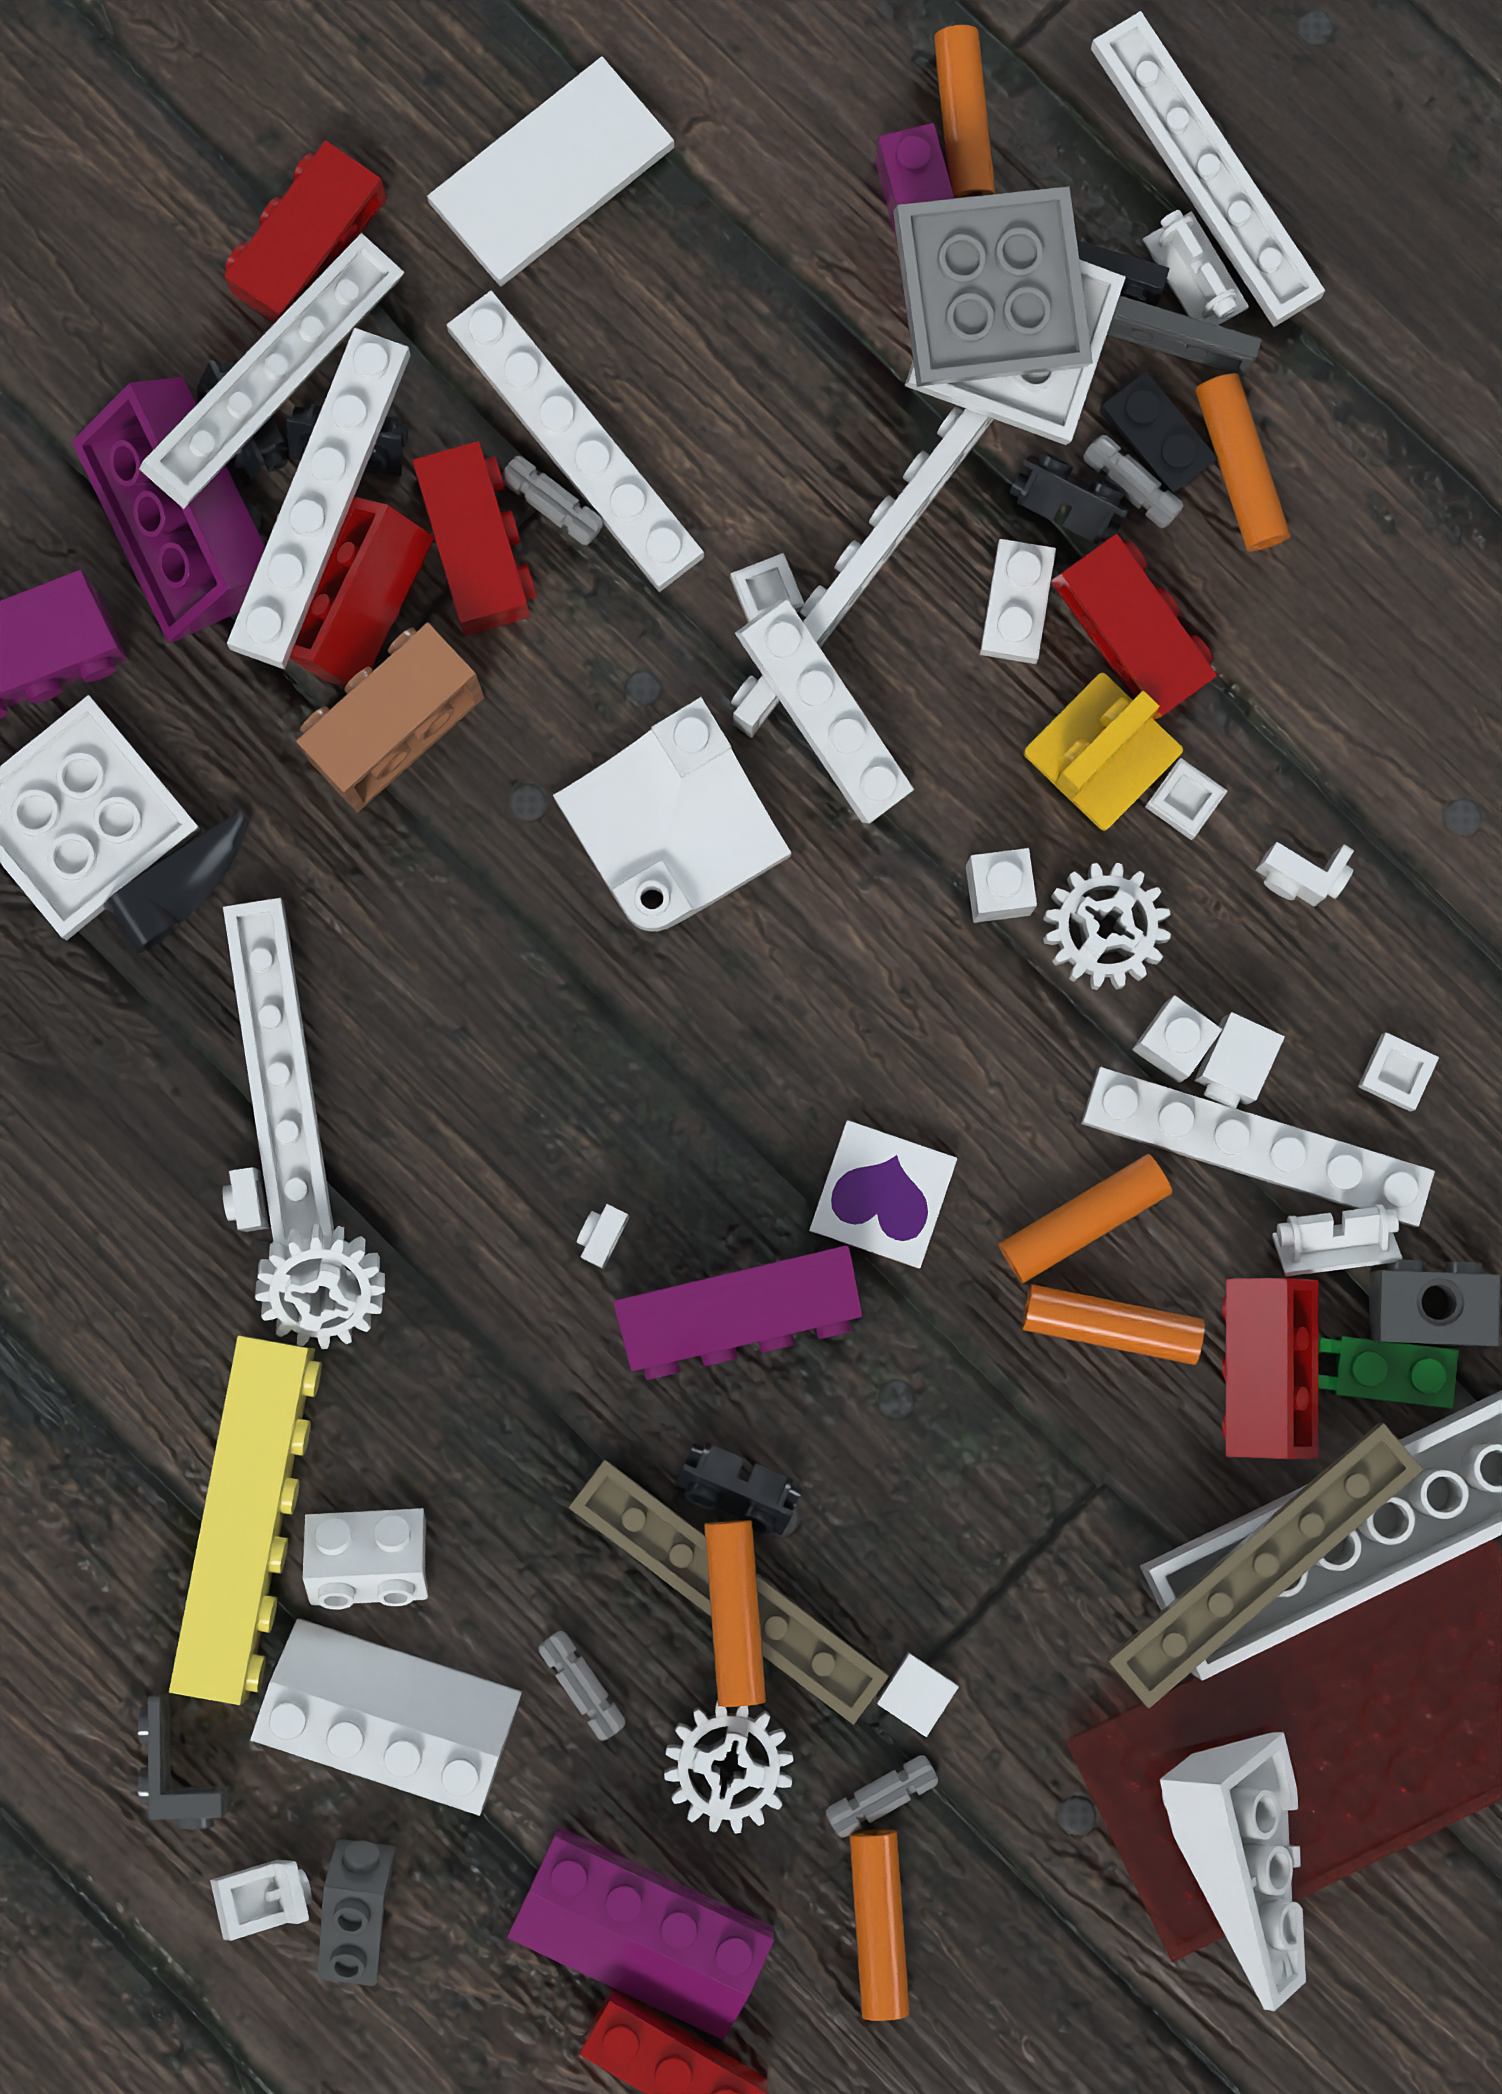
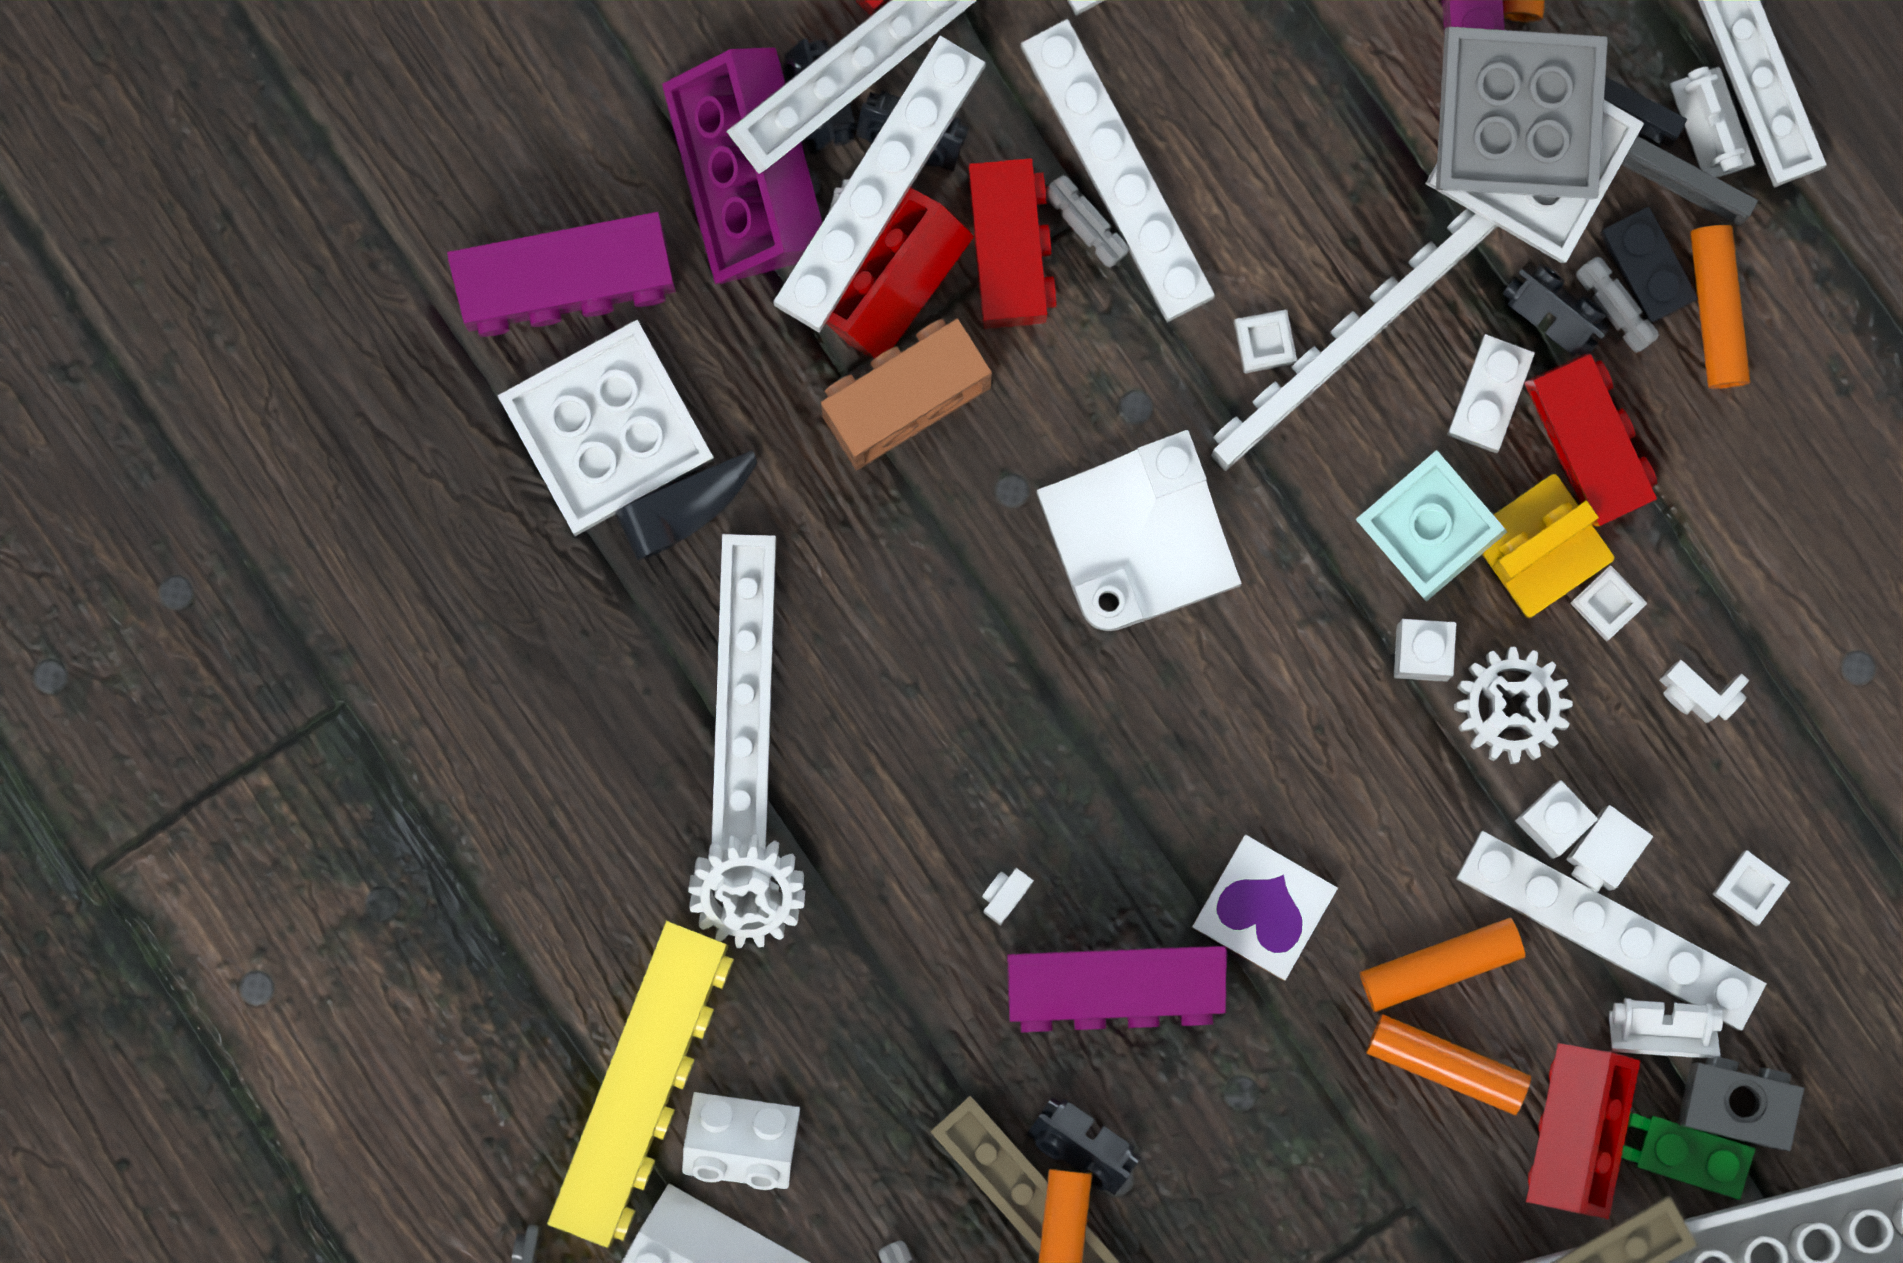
camera: 15 degrees right, 0 degrees up
(246, 1200) = (693, 801): white plate -> none
(824, 710) = (1296, 462): white plate -> none
(982, 751) = (1431, 525): none -> light aqua plate

